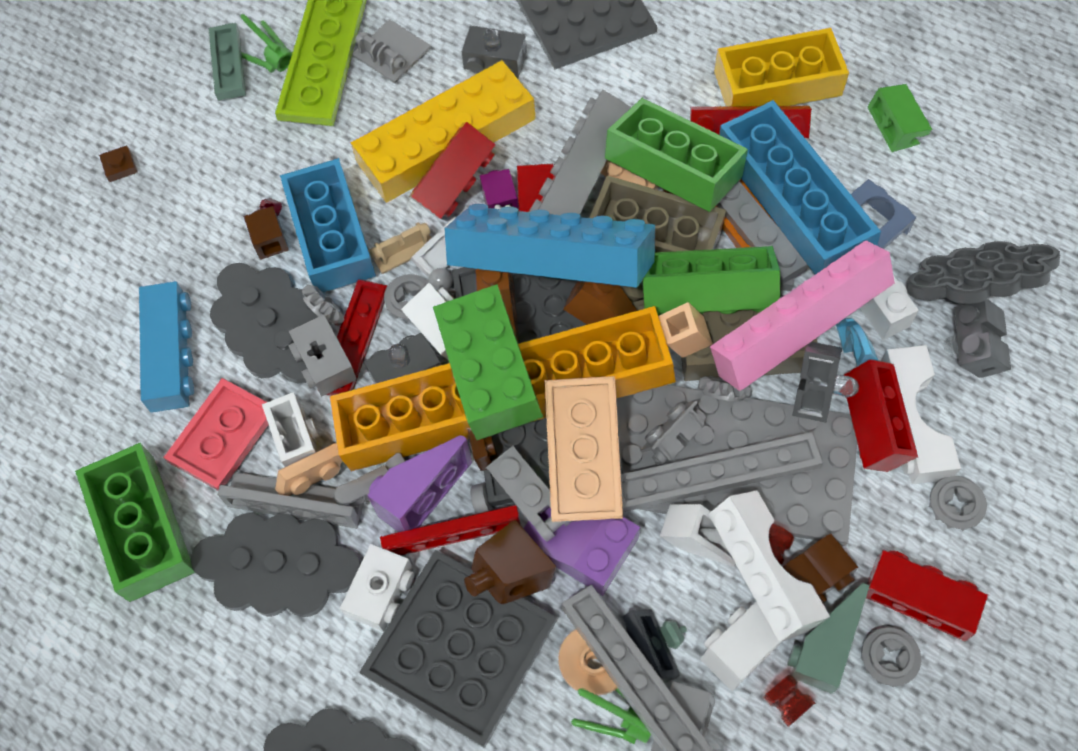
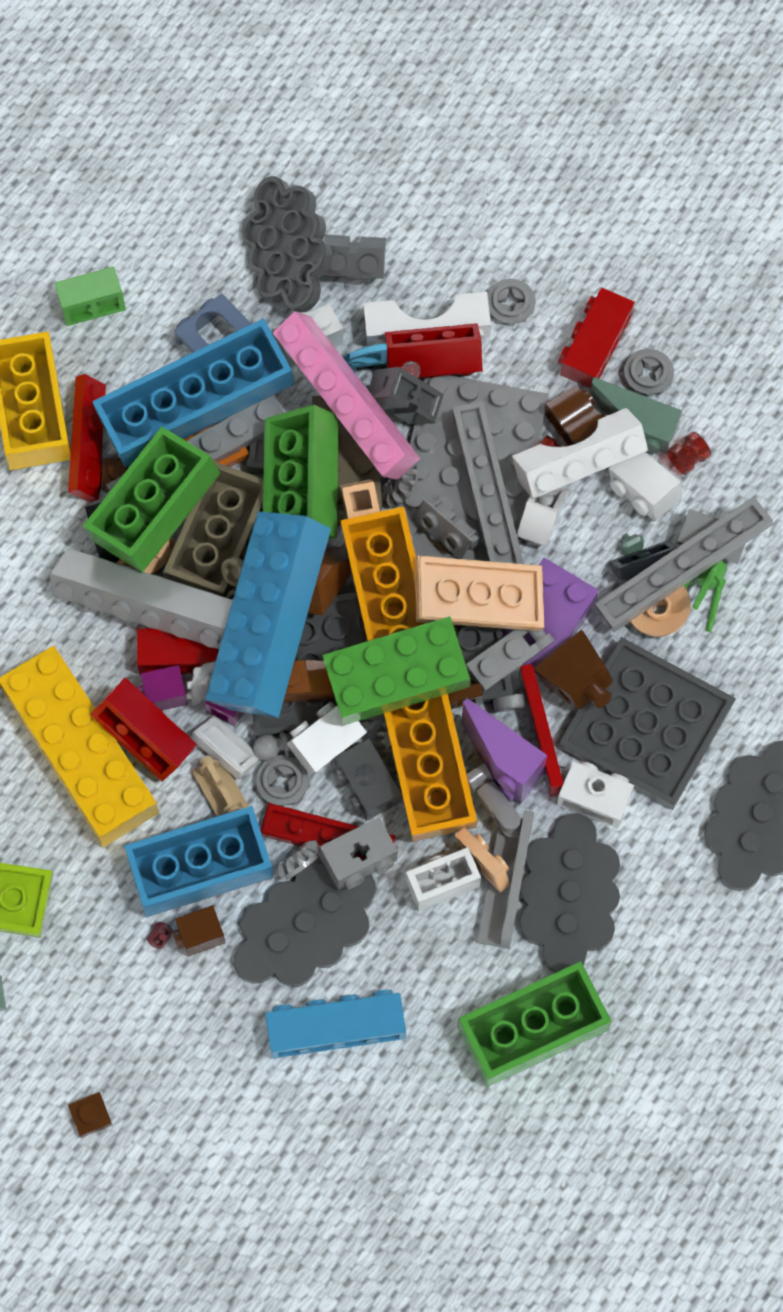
camera: 95 degrees left, 5 degrees up
(219, 435) = (436, 957): coral plate -> none

